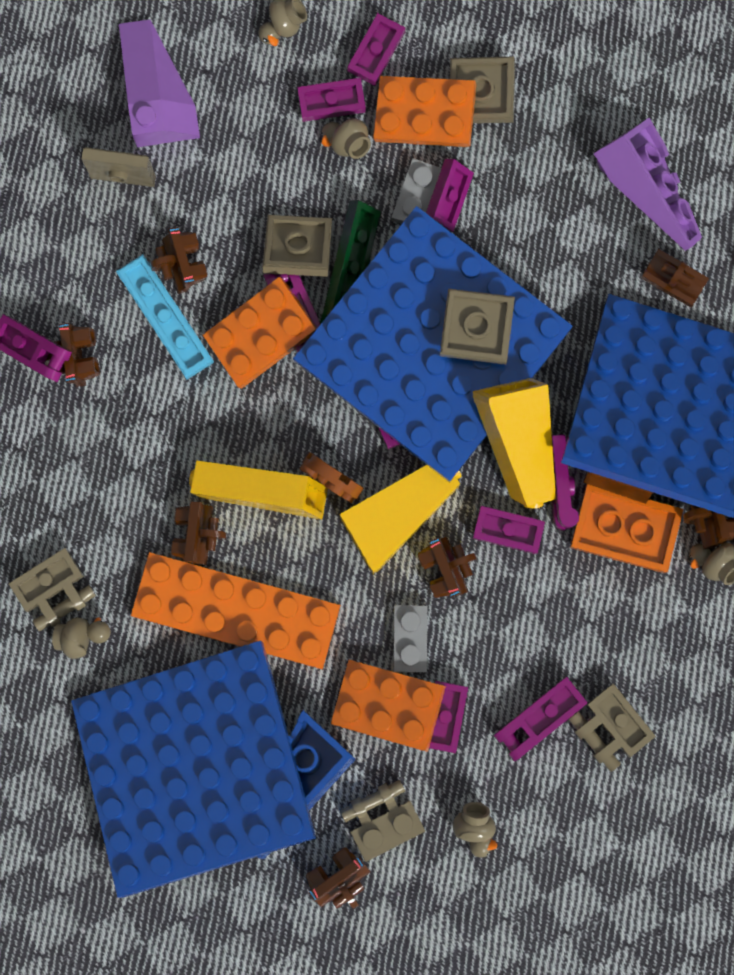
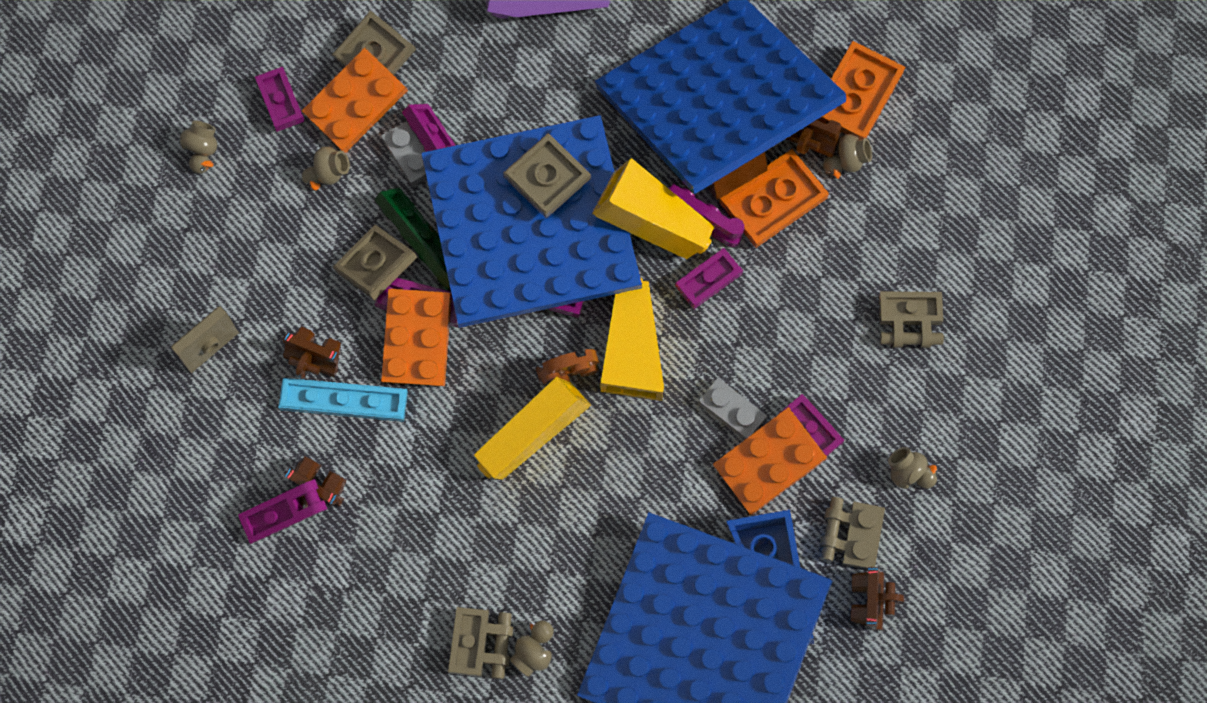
camera: 50 degrees left, 10 degrees down
(156, 94) = (170, 275): medium lavender wedge -> none
(201, 533) = (516, 491): reddish brown hips -> none
(235, 610) = (607, 519): orange plate -> none
(331, 99) = (288, 157): magenta plate -> none
(442, 554) = (714, 347): reddish brown hips -> none
(541, 718) = (865, 361): magenta plate -> none
(675, 278) = (622, 28): reddish brown hips -> none

